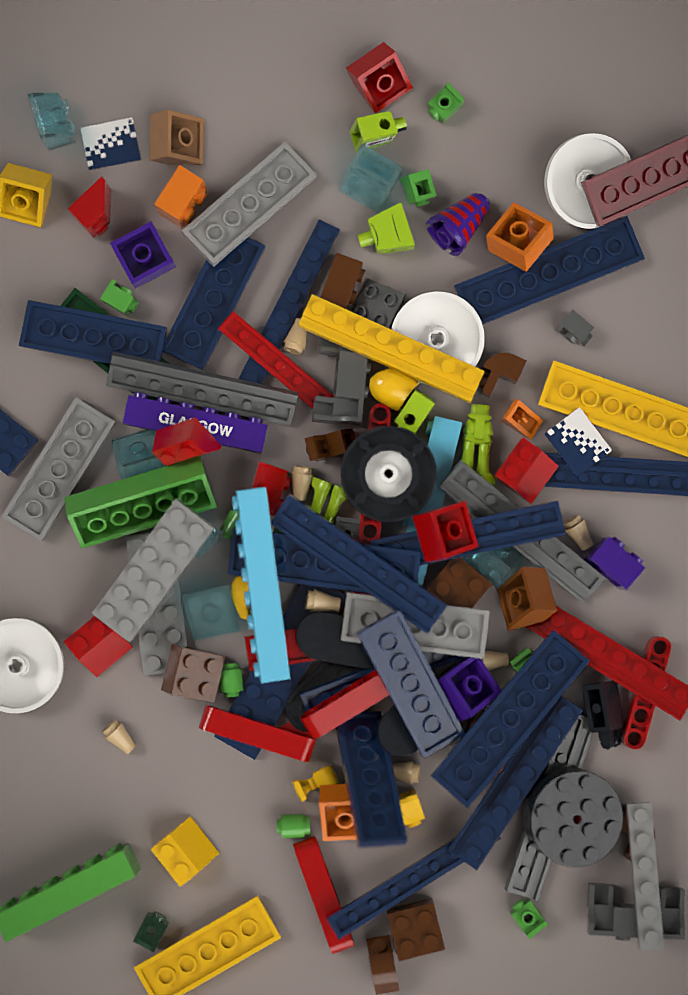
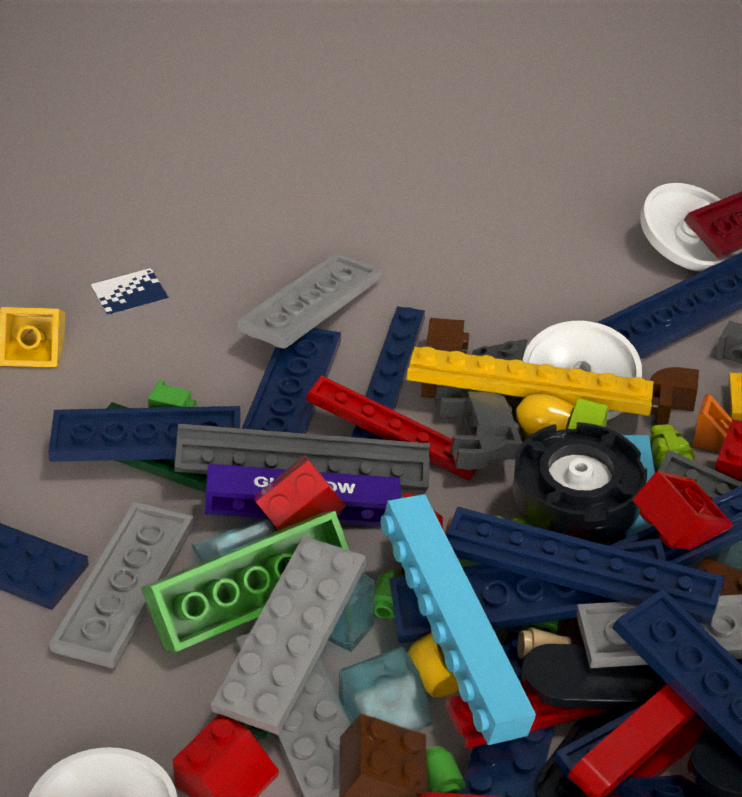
camera: 15 degrees left, 45 degrees down
(52, 119) = (56, 271): clear light blue slope -> none
(93, 208) = (119, 327): red slope -> none
(143, 255) = (193, 357): dark purple brick -> none
(176, 138) = (207, 267): medium nougat slope -> none
(181, 197) = (225, 299): orange brick -> none
(296, 339) = (408, 403): tan cone -> none
(329, 445) = (488, 493): reddish brown brick -> none
(370, 178) = (446, 261): clear light blue slope -> none
(376, 130) = (434, 226): lime torso -> none
(379, 77) = (425, 194): red slope -> none
(388, 231) = (484, 302): lime torso -> none
(421, 181) = (502, 262): bright green brick -> none
(441, 112) = (505, 202): bright green brick -> none
(458, 223) = (557, 282): dark purple cone -> none
(520, 236) = (637, 273): orange brick -> none

